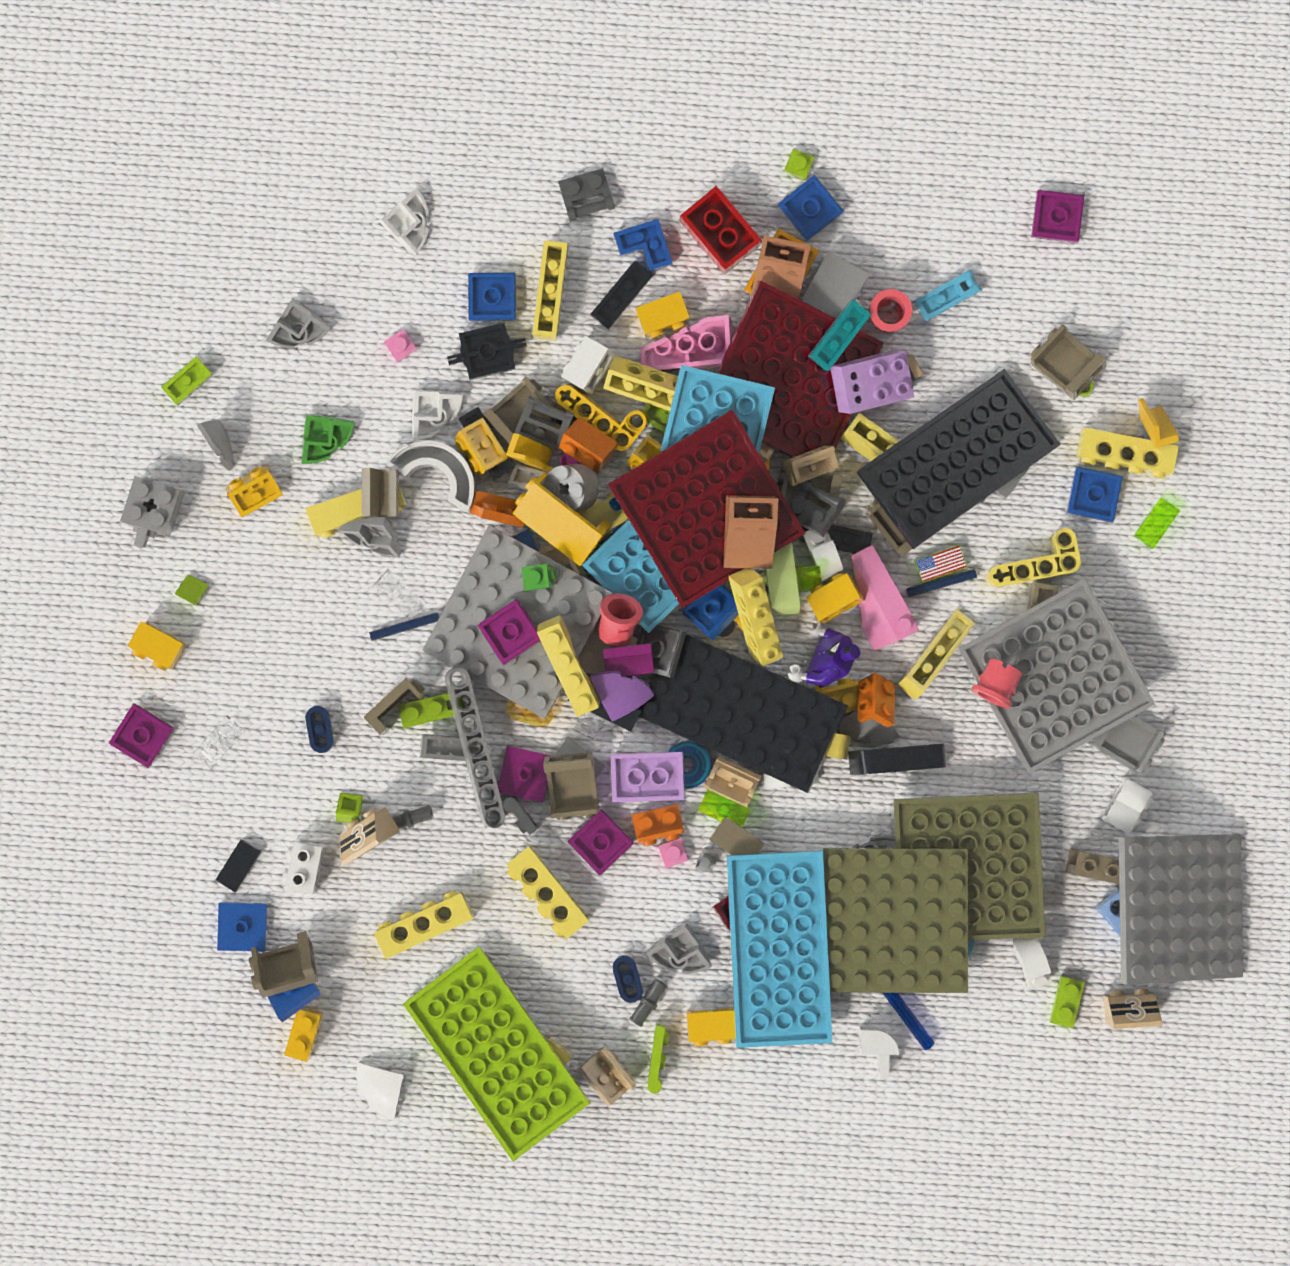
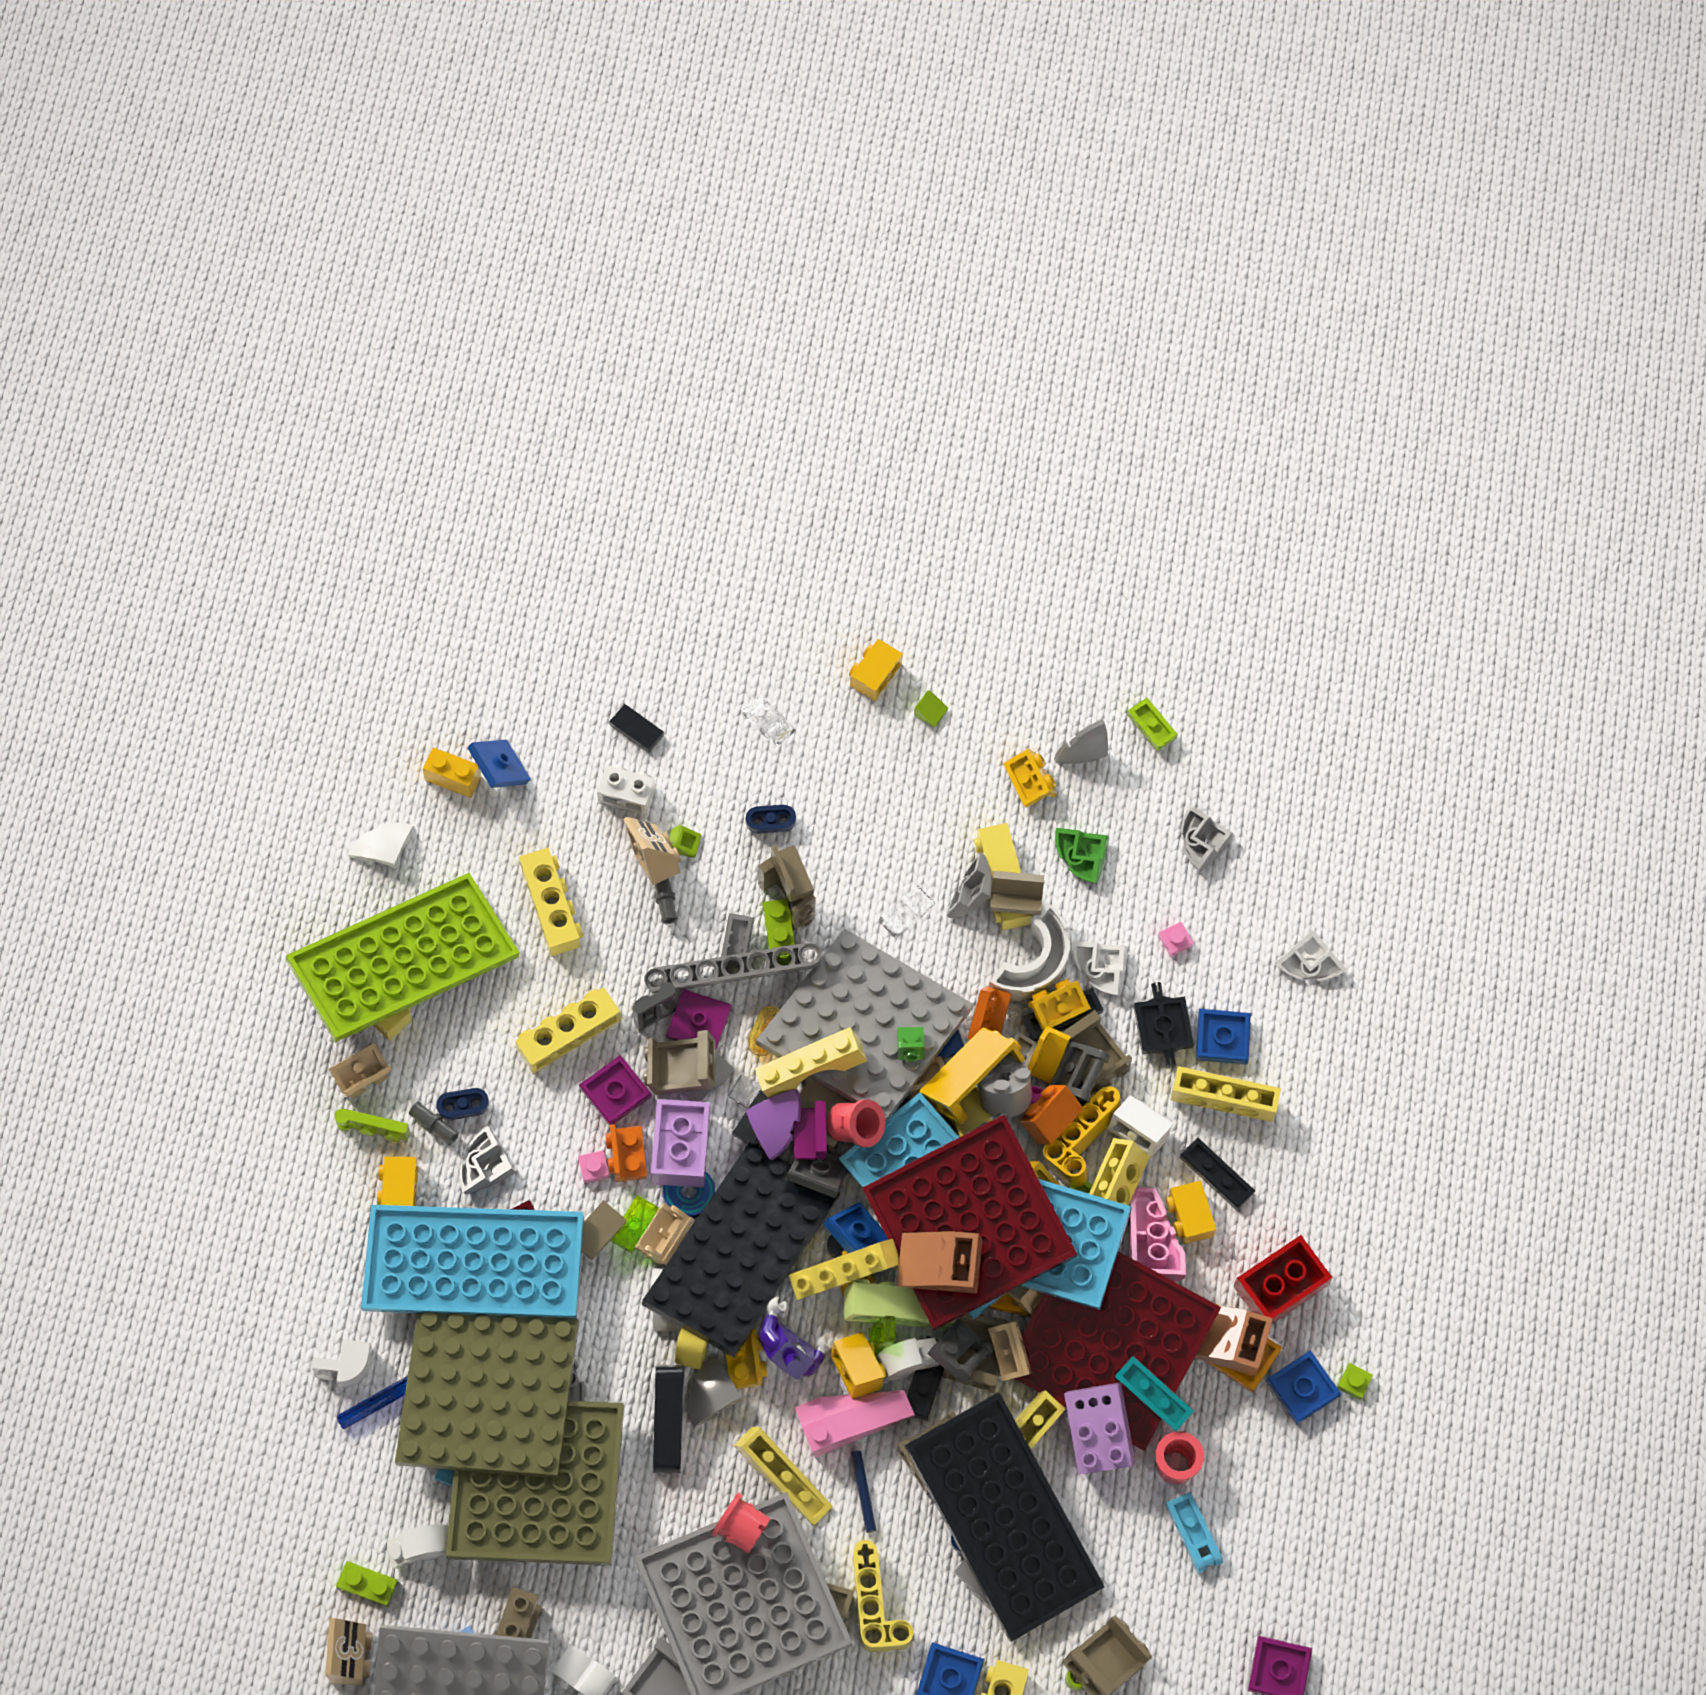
camera: 95 degrees right, 20 degrees down
(141, 735) = (783, 647): magenta plate -> none
(148, 521) = (1008, 674): light grey hinge -> none
(241, 926) = (572, 726): blue plate -> none
(284, 967) = (524, 757): dark tan panel -> none
(385, 701) = (791, 872): none -> dark tan panel
(404, 626) = (871, 913): dark blue bar -> none
(510, 632) = (855, 1008): magenta plate -> none
(585, 187) = (1338, 1143): dark grey plate -> none
(646, 238) = (1277, 1207): blue plate -> none
(704, 862) = (578, 1196): light grey hinge -> none
(835, 285) = (1214, 1401): light grey panel -> none
(876, 700) = (737, 1399): orange bracket -> none
(915, 370) = (1113, 1482): tan tile -> none
(940, 564) = (885, 1492): tile -> none

